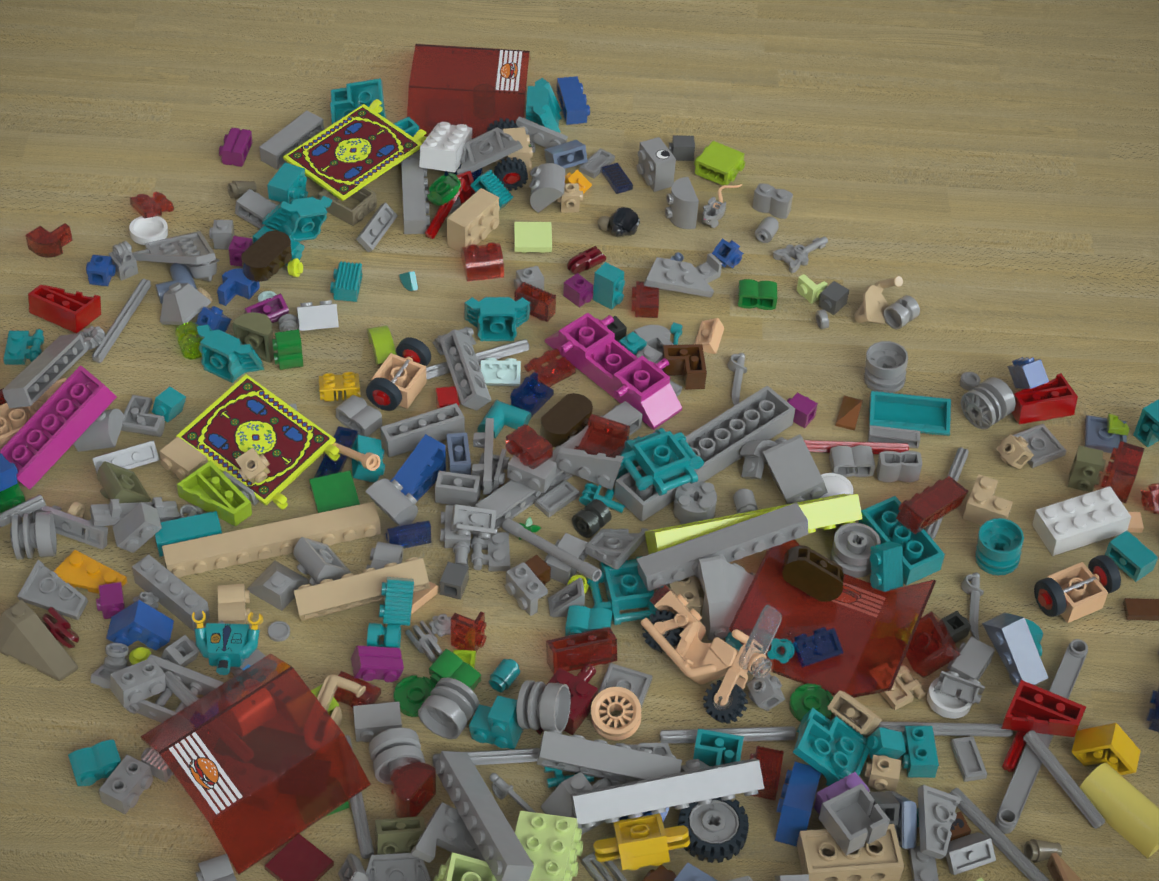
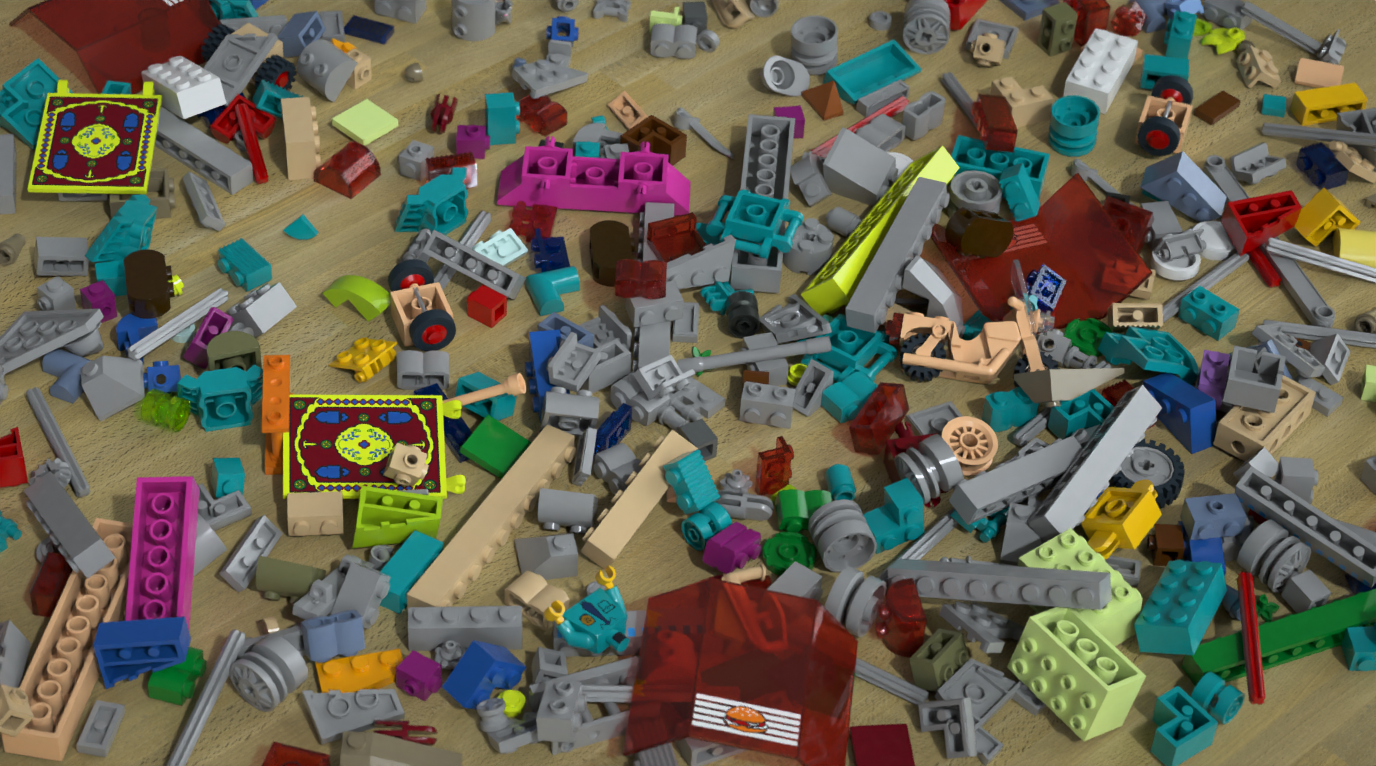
camera: 45 degrees left, 5 degrees down
(93, 539) = (333, 635): none -> sand blue brick
(236, 369) = (275, 409): none -> orange fence
(259, 292) = (177, 324): none -> light grey axle
(288, 184) = (71, 210): teal brick -> none
(288, 349) = (284, 341): green brick -> none
(371, 538) = (584, 456): none -> light grey tile
(407, 433) = (503, 338): light grey brick -> none
(424, 471) = (572, 364): none -> light grey bracket
(444, 189) = (235, 125): green tile -> none
(485, 440) = (593, 319): light grey hinge -> none
(624, 222) = (436, 60): black hair -> none
(680, 710) = (1008, 409): none -> teal brick
(709, 716) = (1063, 384): none -> wedge
(757, 294) = (628, 53): green brick -> none
(777, 714) = (1074, 355): none -> light grey bush
(798, 305) = (674, 41): none -> light grey brick
(839, 376) = (785, 76): none -> light grey piece
(883, 773) = (1210, 339): tan brick -> none
(886, 743) = (1183, 323): teal brick -> none
(968, 759) = (1242, 296): light grey tile -> none
(997, 701) = (1217, 241): none -> white piece
(1113, 670) = (1256, 164): none -> light grey bracket

